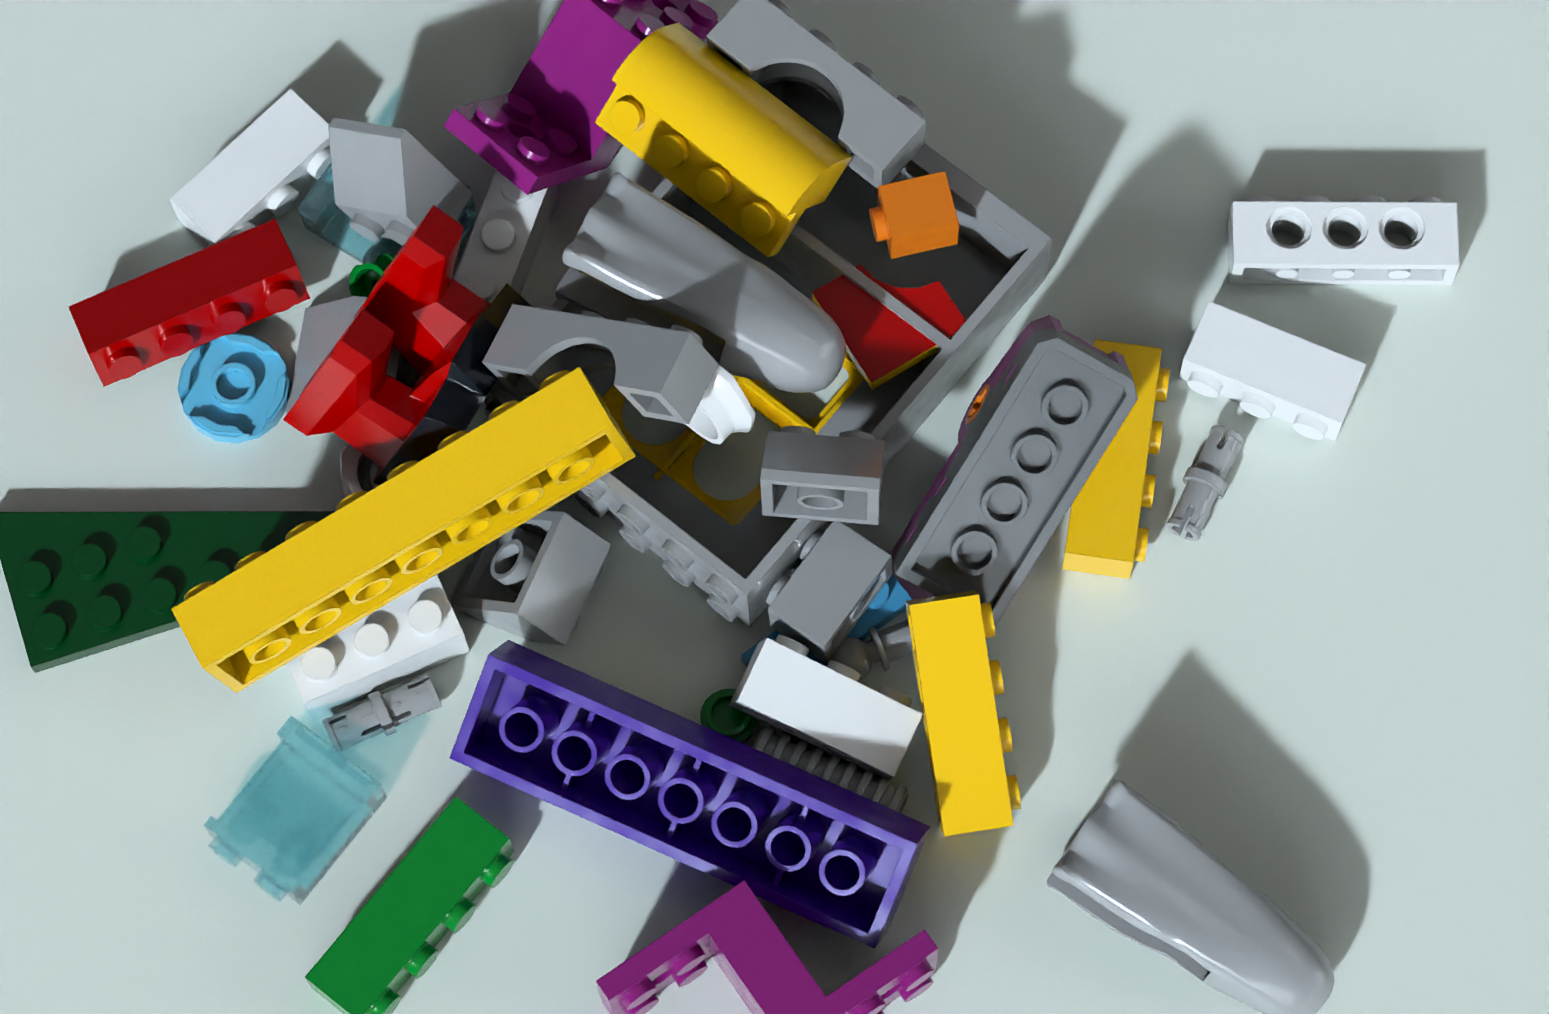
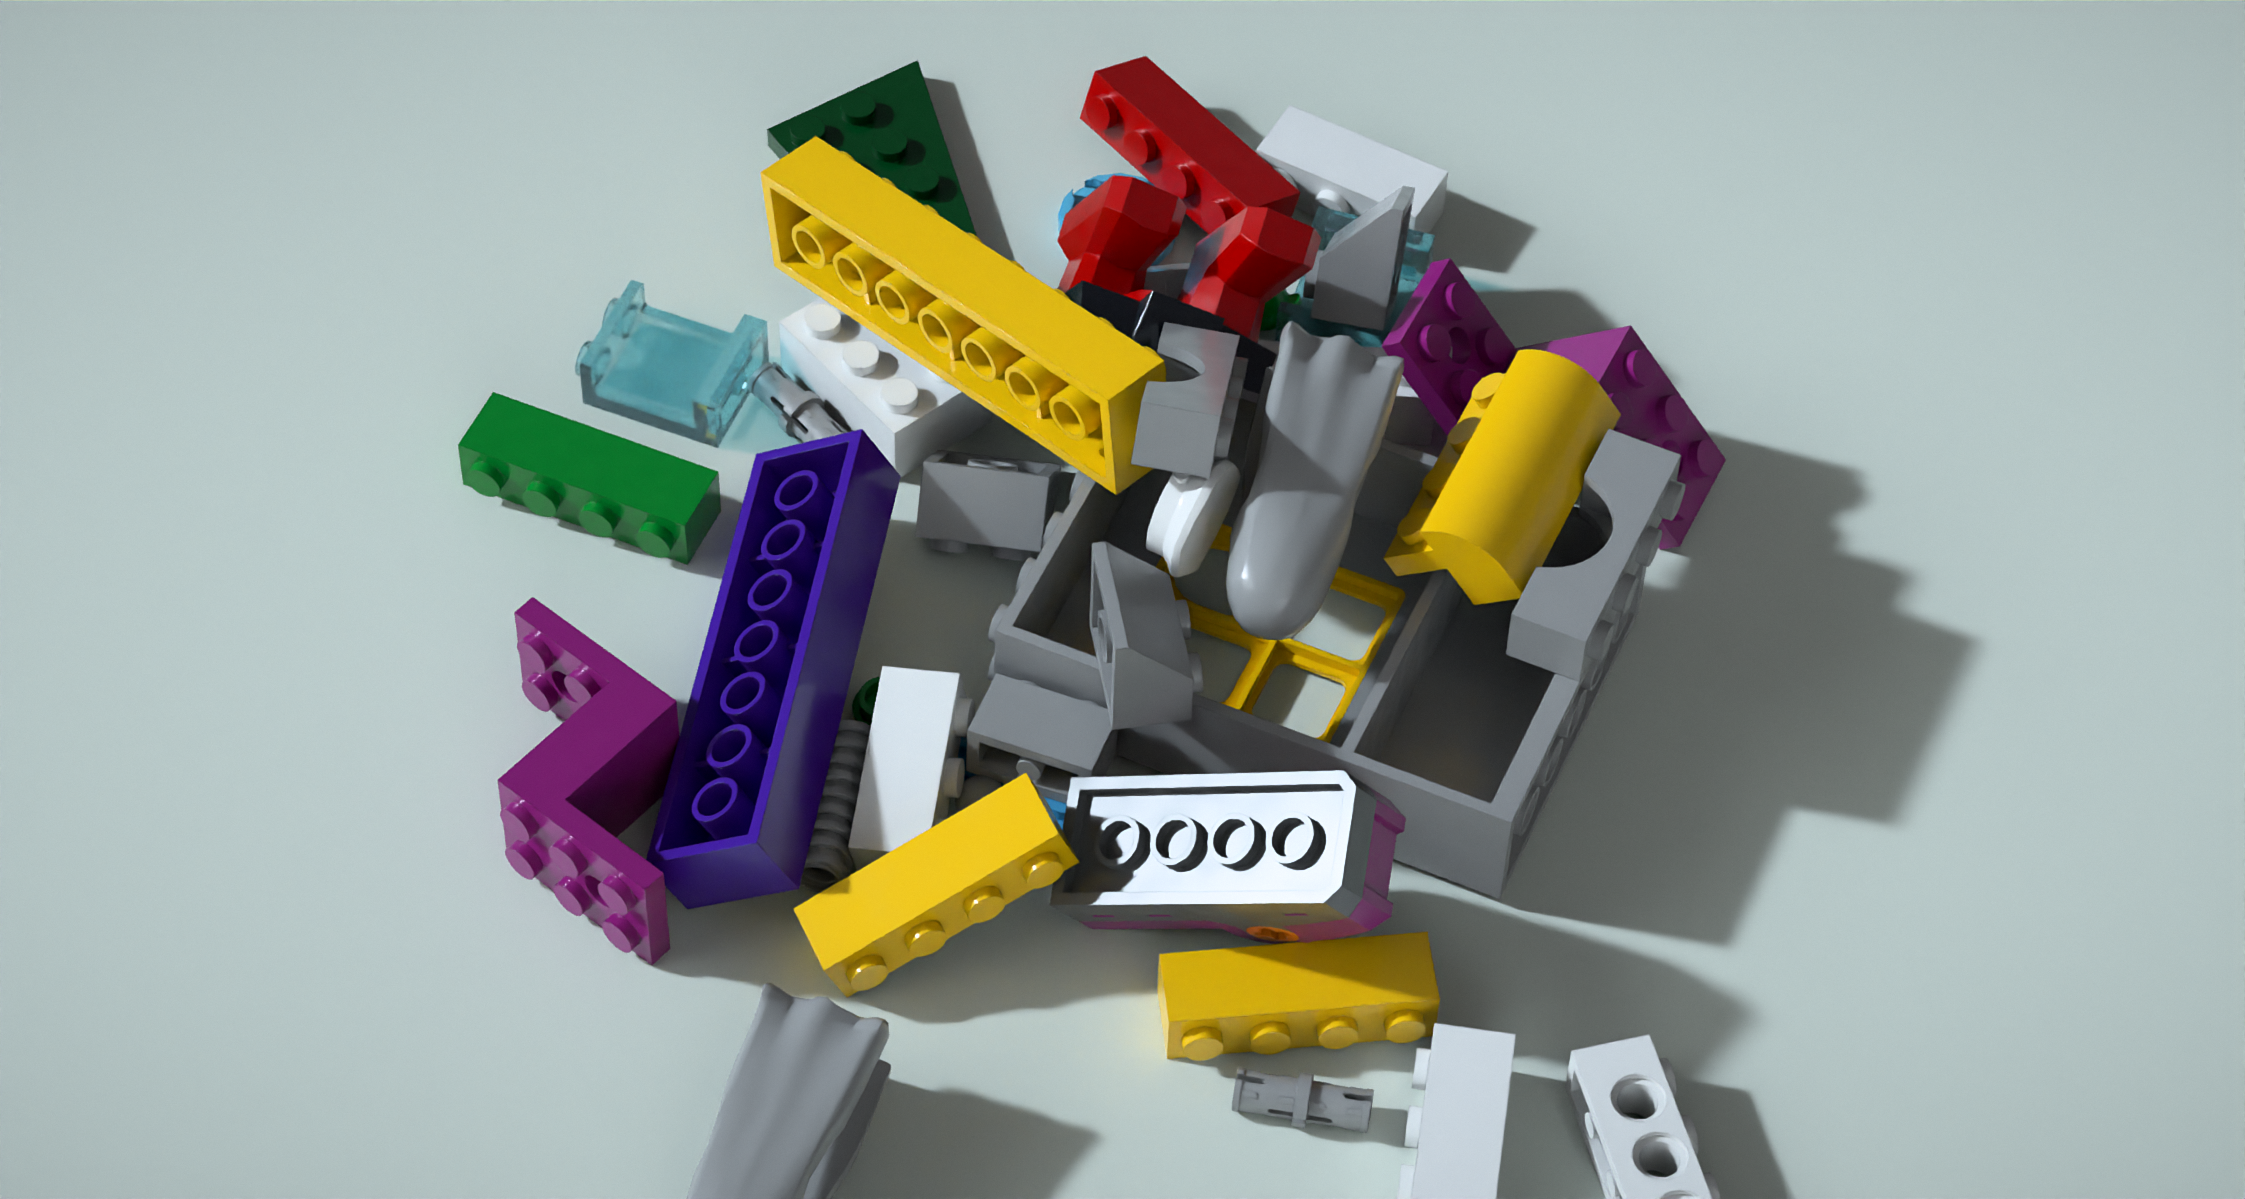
camera: 70 degrees right, 20 degrees down
(876, 336) = (1335, 689): red tile -> none
(915, 215) = (1480, 674): orange brick -> none

